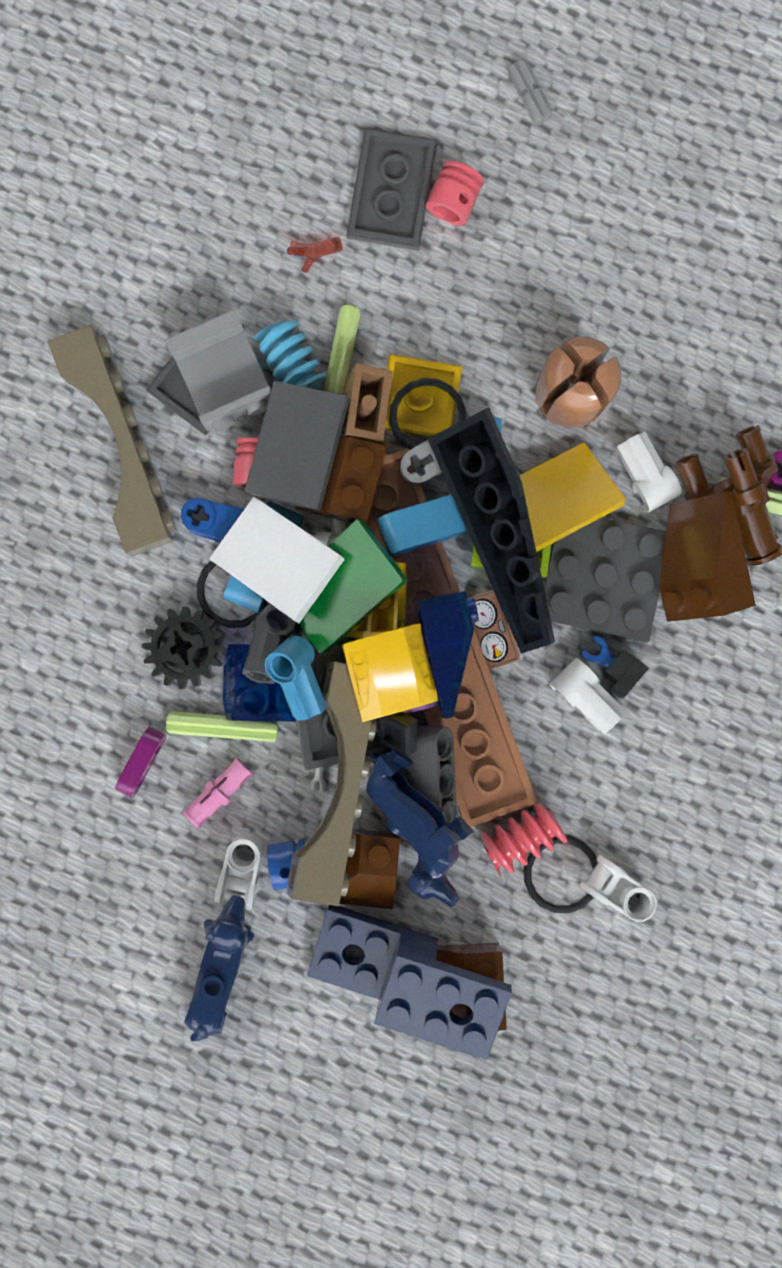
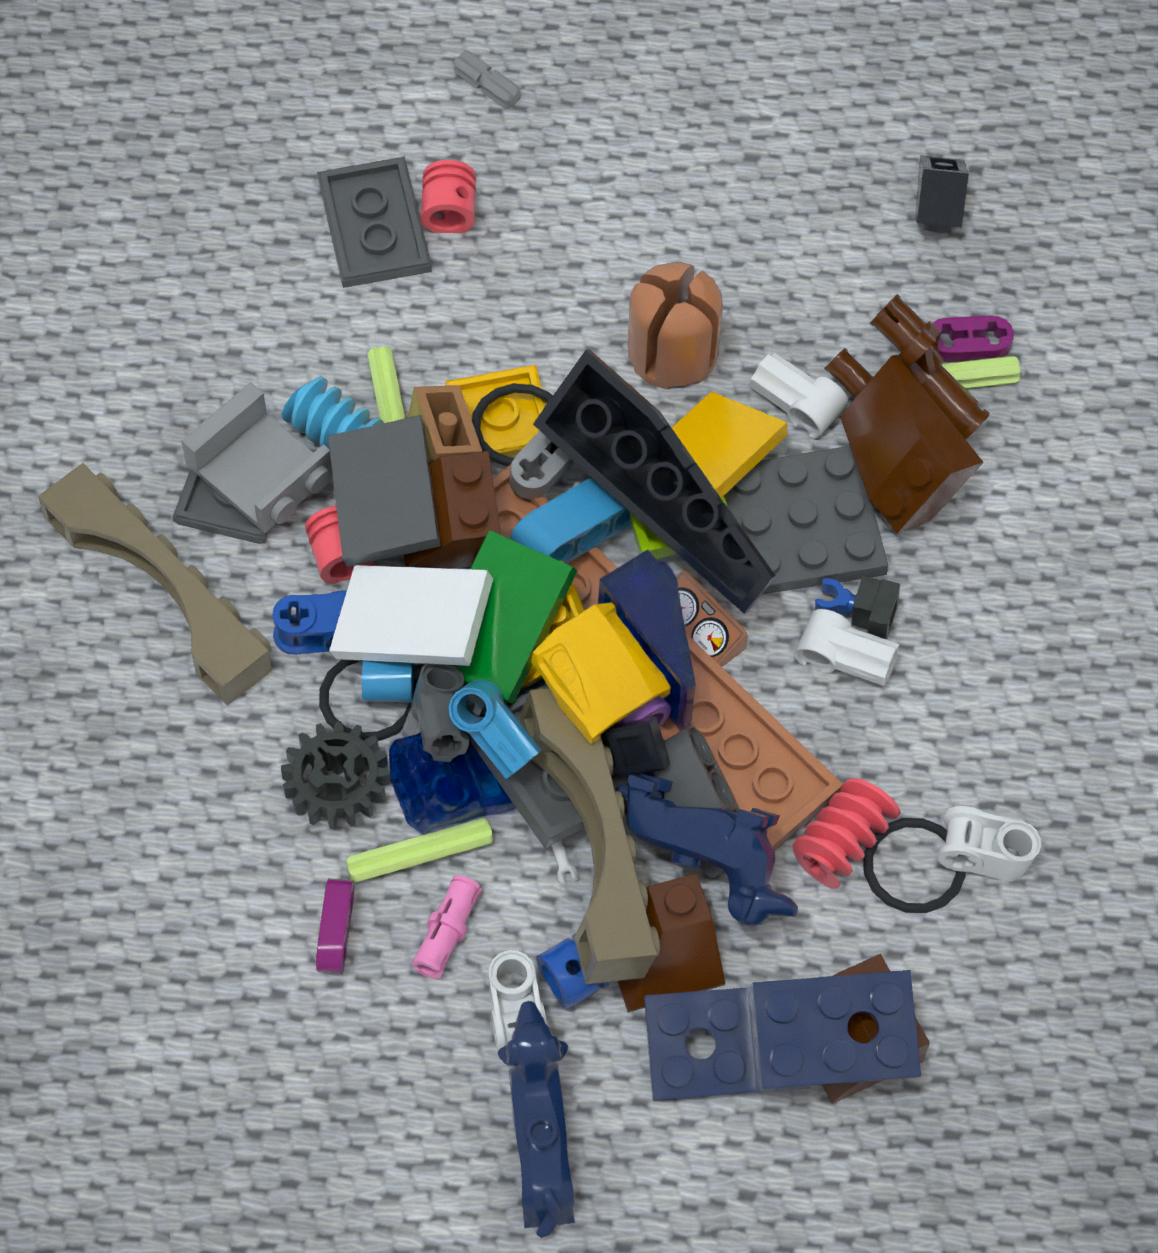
camera: 20 degrees left, 25 degrees down
(314, 250) = (314, 309): clear red bar -> none

